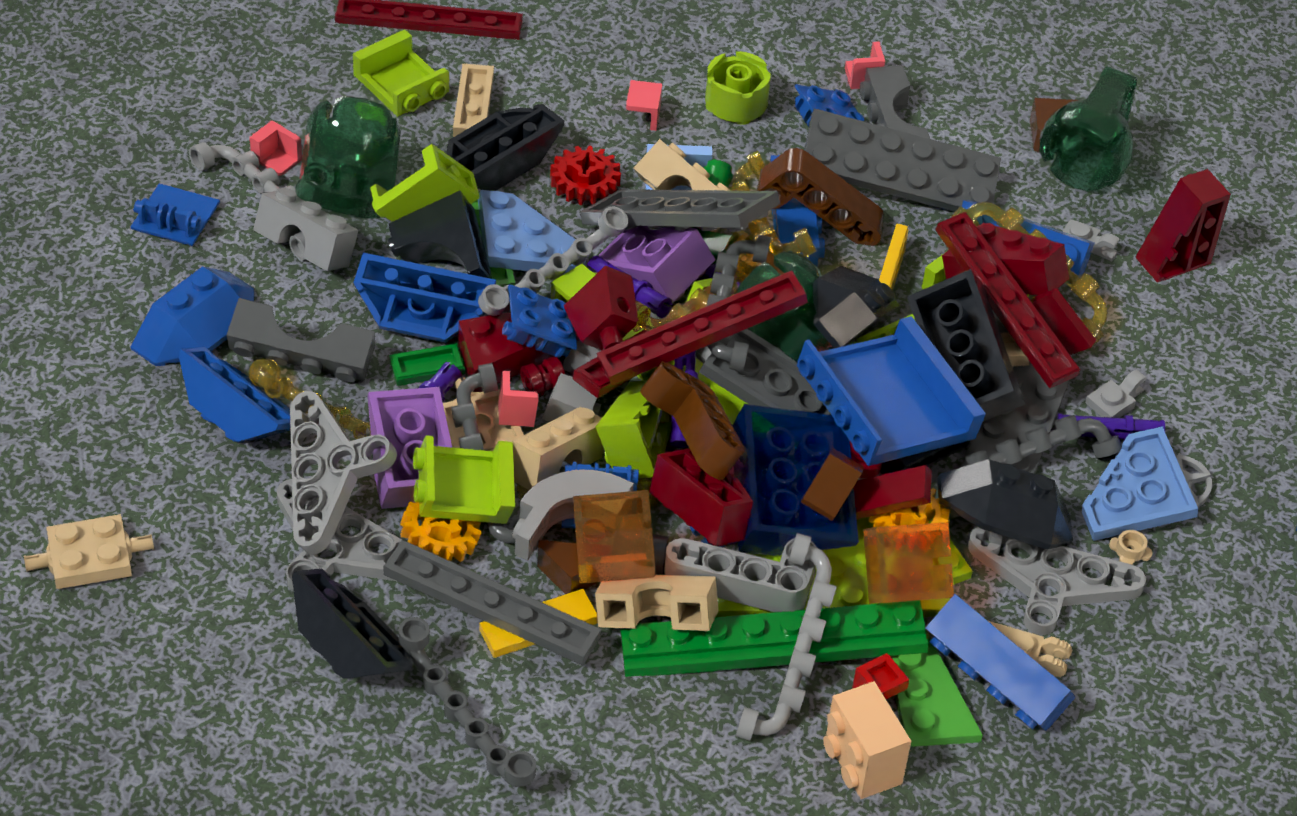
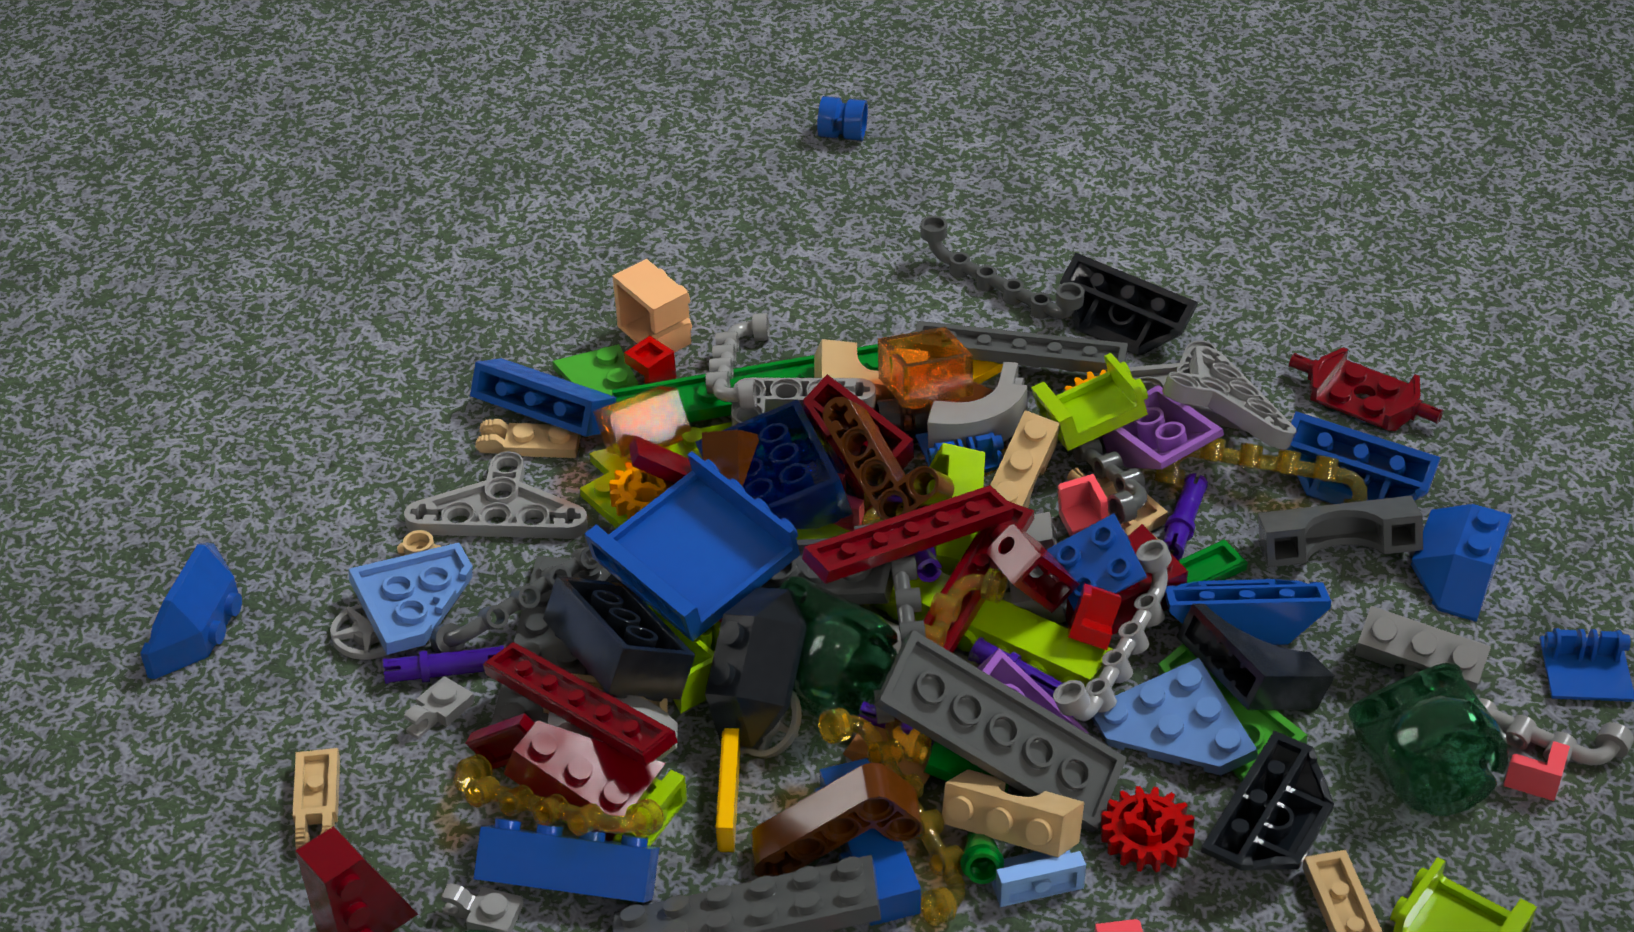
camera: 170 degrees right, 5 degrees down
(88, 551) = (1397, 334): tan plate -> none
(163, 467) = (1389, 402): none -> dark red plate
(431, 183) = (1309, 686): lime panel -> none
(563, 284) = (1094, 616): none -> red panel
(1008, 502) = (548, 516): black wedge -> none
(1216, 346) = (315, 791): none -> tan hinge

